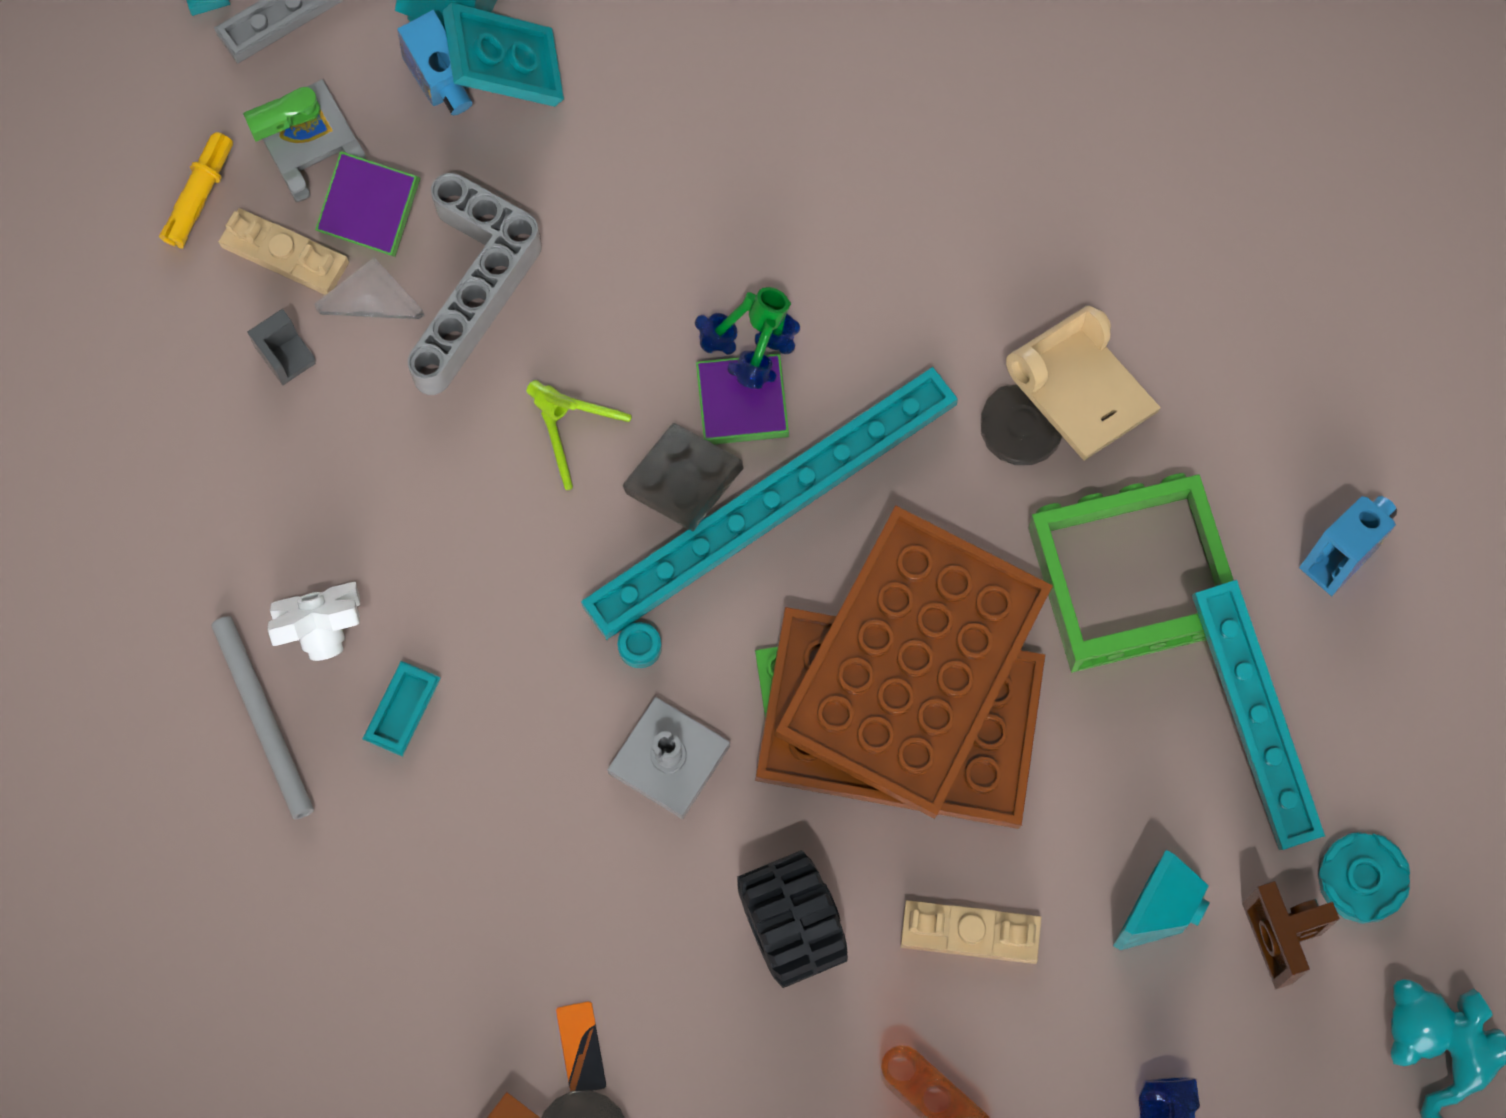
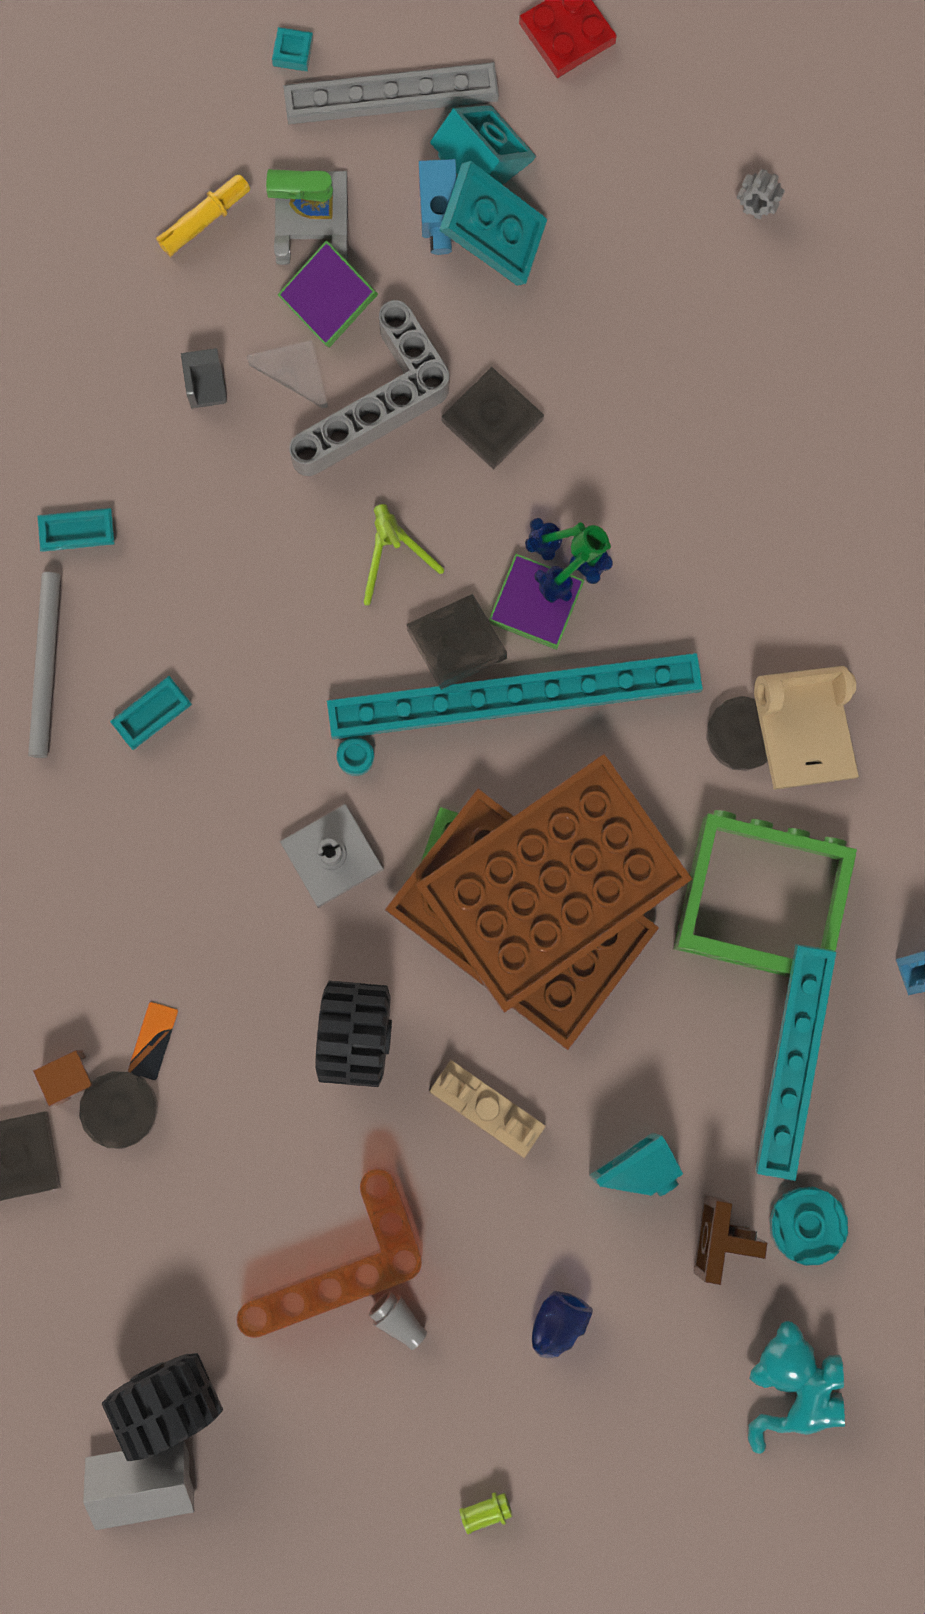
camera: 20 degrees right, 10 degrees up
(224, 563) = (75, 530): none -> teal tile
(283, 251) = (245, 299): tan plate -> none
(316, 620) = (118, 611): white plant -> none
(600, 244) = (492, 418): none -> clear smoke tile

